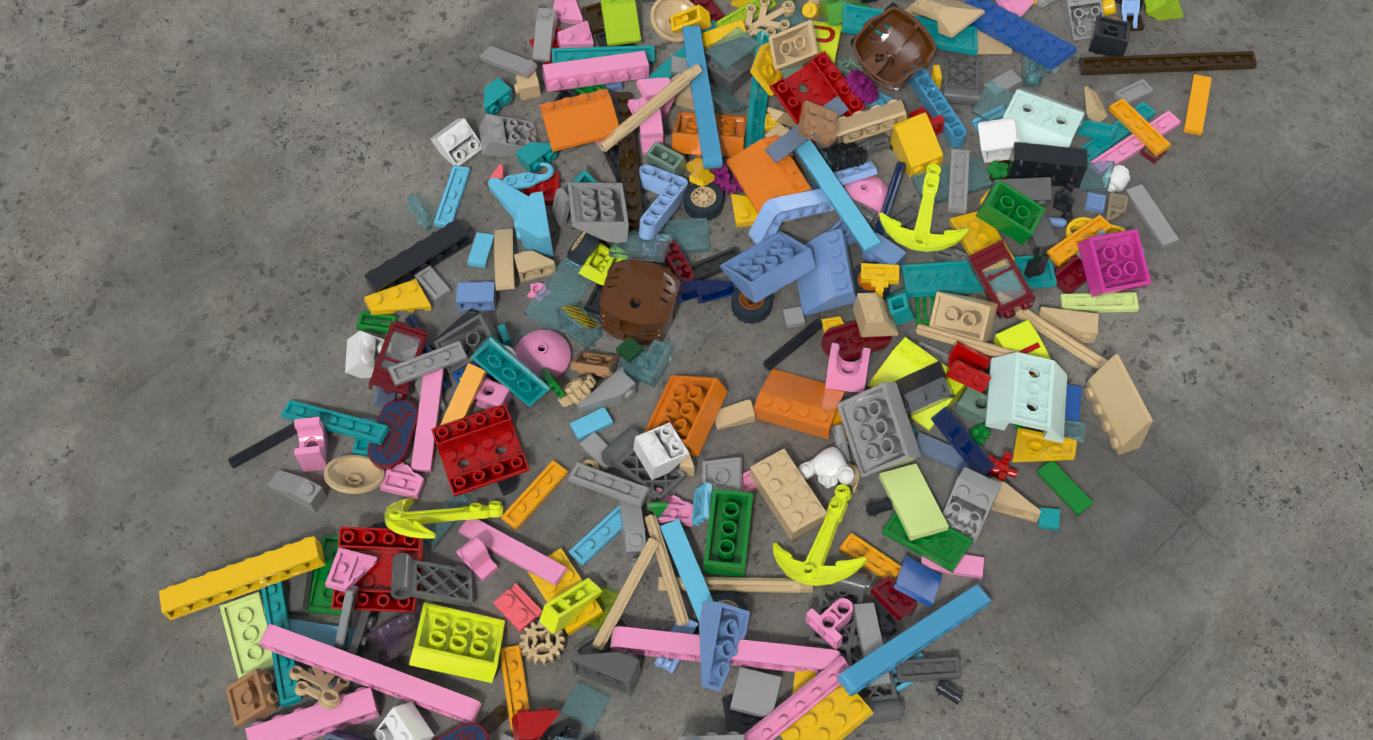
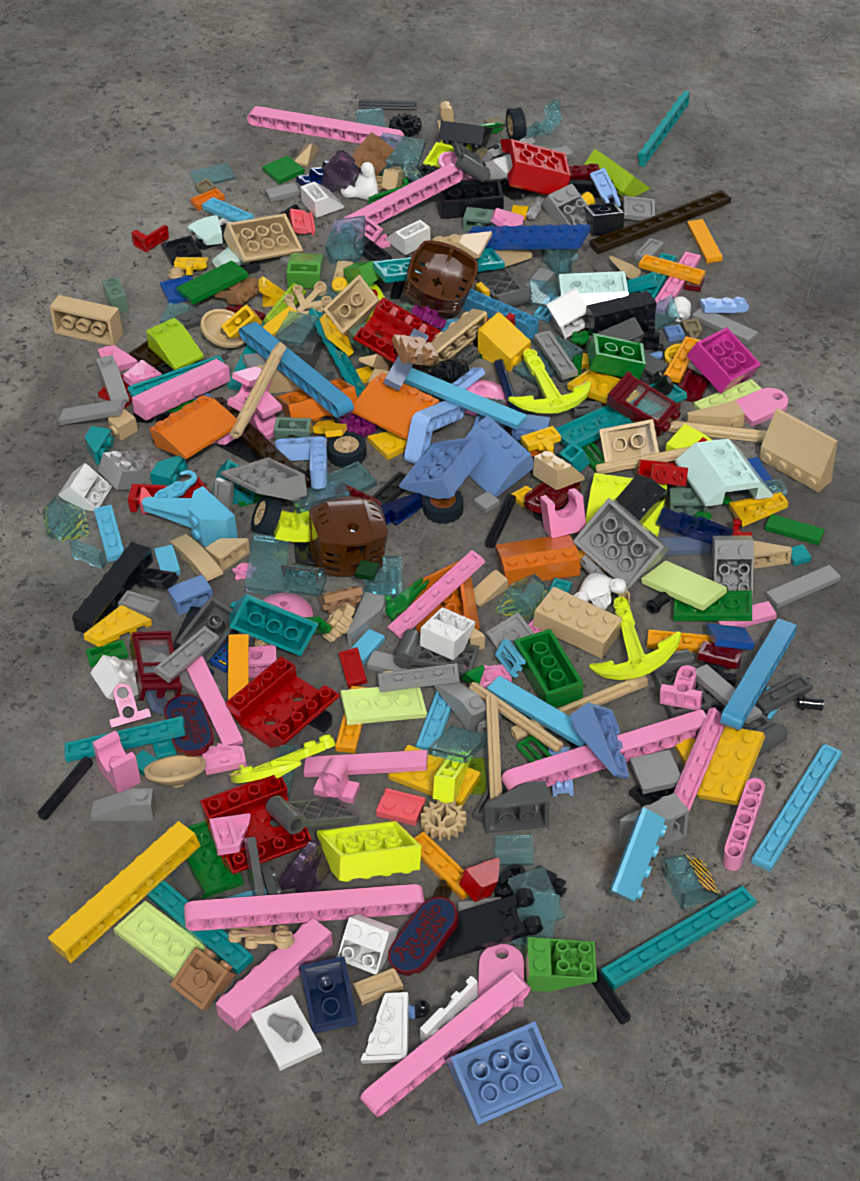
camera: 30 degrees left, 15 degrees down
(338, 449) = (143, 760): none -> teal tile
(356, 387) = (126, 702): none -> bright pink tile
(422, 168) = (65, 520): none -> clear light blue slope
(455, 268) = (156, 579): none -> black plate
(488, 170) = (135, 491): none -> red bracket
(554, 491) = (373, 706): none -> yellowish green tile
(565, 441) = (353, 667): none -> red tile
(598, 573) = (458, 744): none -> clear light blue tile
(649, 392) = (401, 602): none -> green piece
(656, 599) = (526, 755): none -> green tile
(678, 403) = (436, 593): none -> bright pink tile
(757, 441) = (523, 597): none -> clear light blue slope
(801, 445) = (561, 584): none -> teal tile
(974, 200) = (577, 361): none -> green axle
(1030, 557) = (803, 586): none -> light grey tile
(1126, 327) = (761, 405): none -> bright pink tile
(1154, 38) = (638, 208): none -> light grey tile
(1165, 192) = (724, 305): none -> light blue hinge

